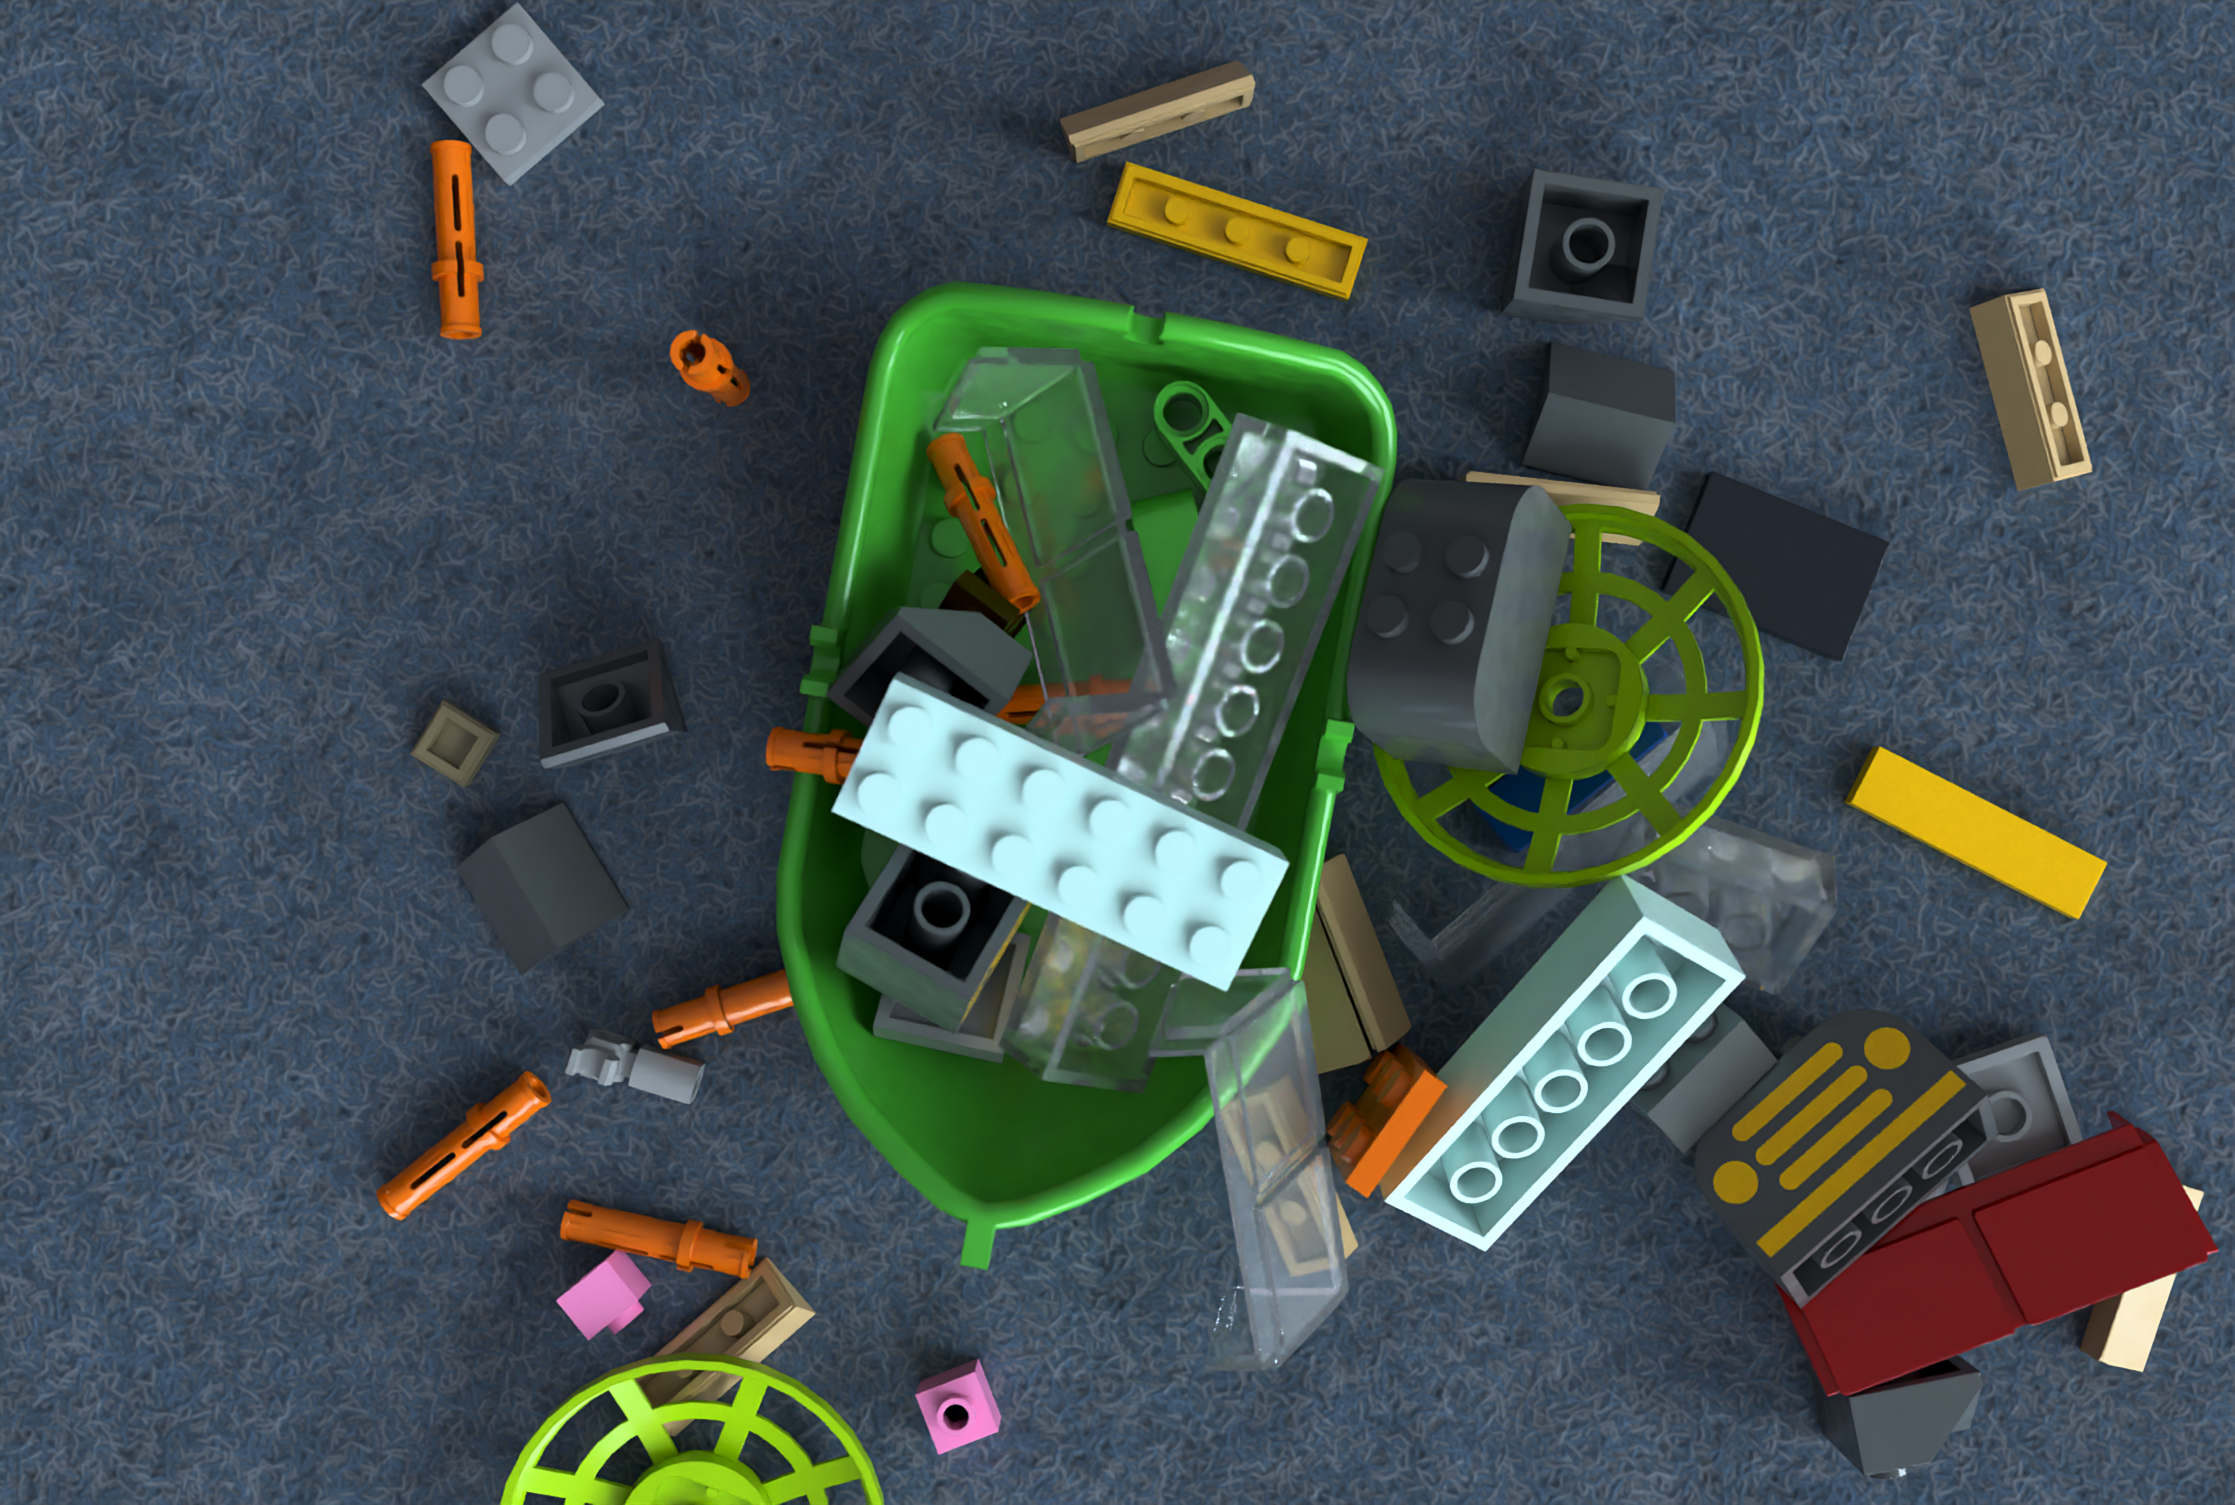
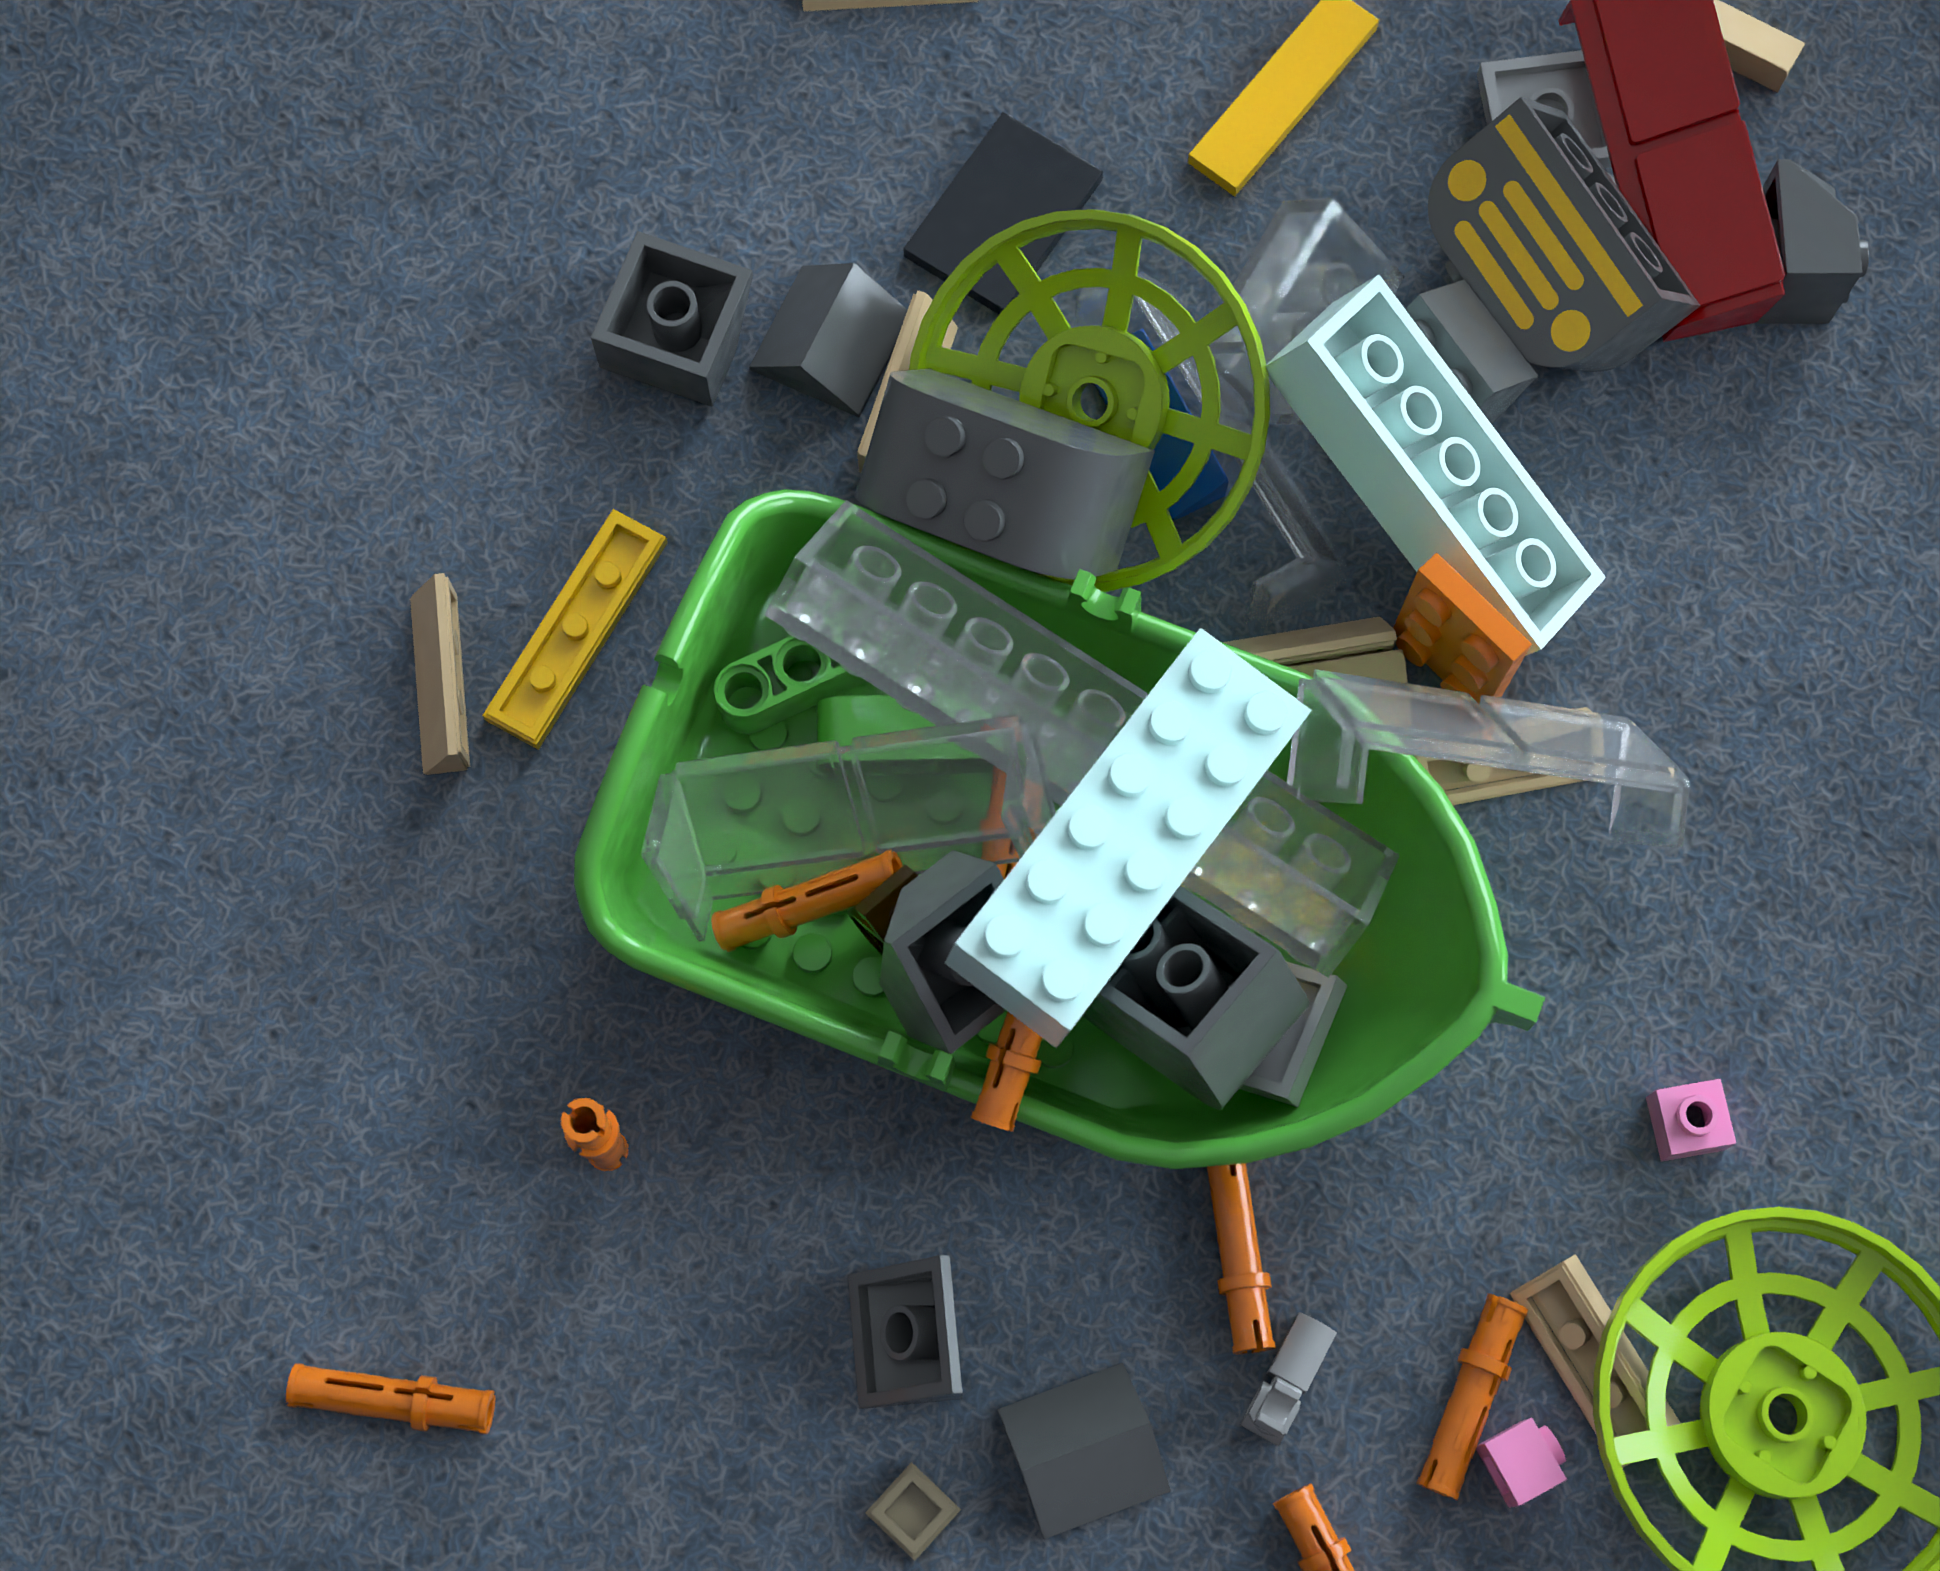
camera: 75 degrees left, 15 degrees down
(513, 94) = (255, 1309): light grey plate -> none

